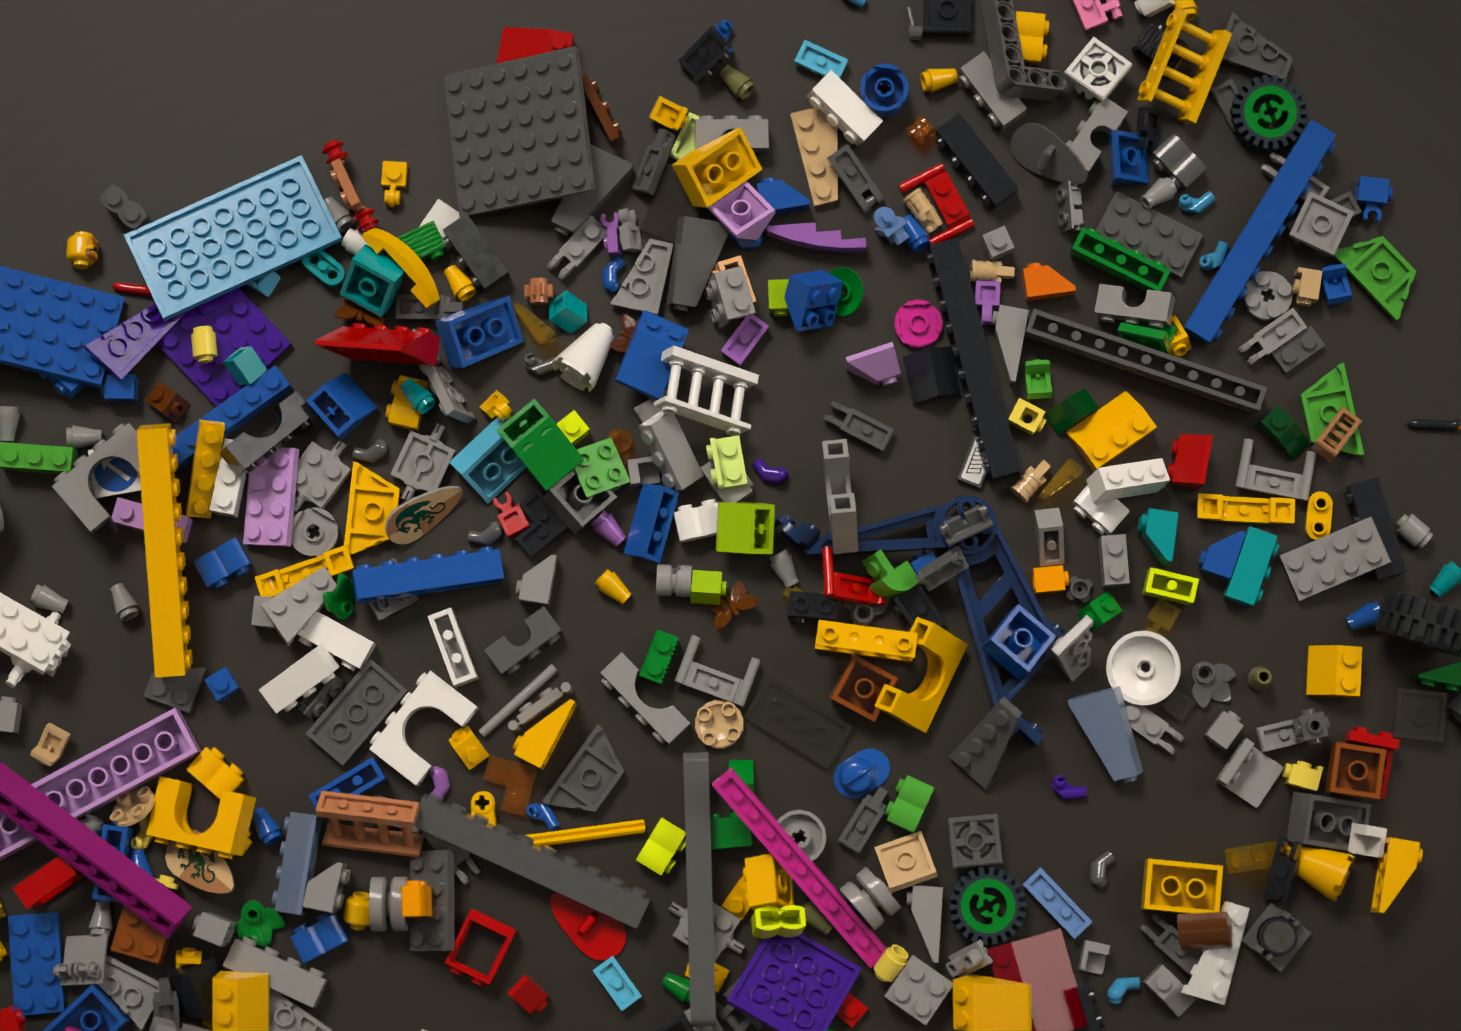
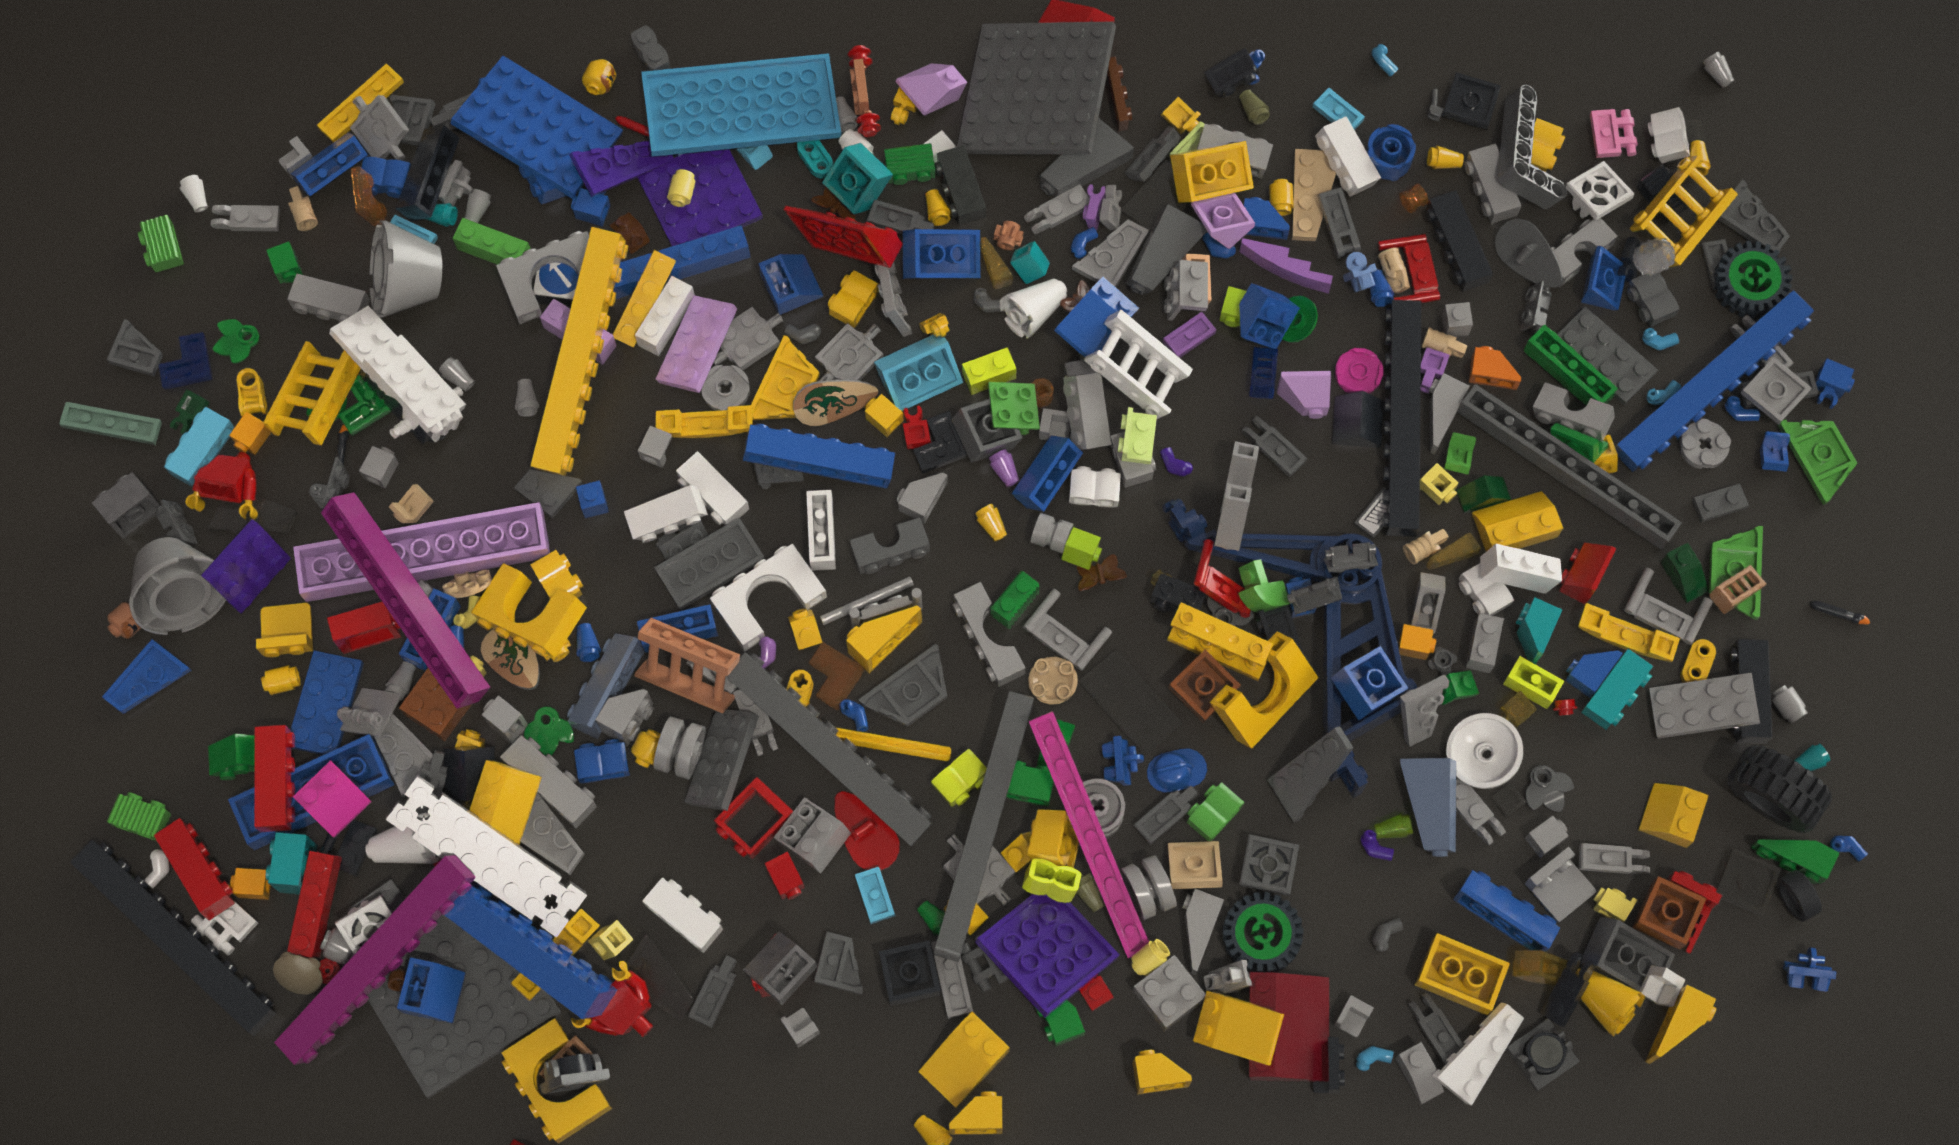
camera: 15 degrees right, 10 degrees down
(81, 437) = (538, 238): light grey cone -> none
(223, 563) = (630, 390): blue brick -> none
(245, 365) = (712, 218): teal panel -> none
(246, 450) = (687, 290): arch -> none
(297, 604) = (686, 444): light grey wing -> none
(341, 600) = (729, 454): green plate -> none
(407, 259) = (903, 195): yellow slope -> none
(414, 159) = (932, 86): none -> lavender slope
(416, 899) = (706, 747): light orange brick -> none
(419, 398) = (865, 292): teal cone -> none
(475, 512) = (883, 415): none -> yellow brick
(488, 536) = (887, 441): dark grey arm -> none
(540, 445) = (964, 363): green slope -> none
(541, 946) = (812, 835): none -> light grey slope
(745, 527) = (1136, 502): lime slope -> none
(784, 567) = (1161, 553): light grey cone -> none
(791, 168) = (1282, 196): none -> yellow brick
(810, 780) = (1125, 760): none -> blue hips
(834, 366) = (1259, 386): none -> clear blue slope
(1057, 903) = (1332, 953): medium blue plate -> none
(1080, 765) = (1394, 827): none -> clear neon green cone
(1160, 192) = (1627, 319): light grey cone -> none
(1168, 123) = (1654, 256): none -> clear gear
(1205, 931) = (1473, 1021): reddish brown brick -> none
(1206, 598) = (1565, 707): none -> red plate
(1207, 816) = (1506, 913): none -> blue slope
(1254, 680) = (1595, 802): olive cone -> none
(1275, 335) = (1701, 482): light grey hinge -> none
(1291, 253) = (1738, 412): none -> blue arm
(1303, 731) = (1630, 861): dark grey brick -> none
(1306, 286) = (1746, 445): tan brick -> none
(1364, 616) = (1717, 771): blue cone -> none

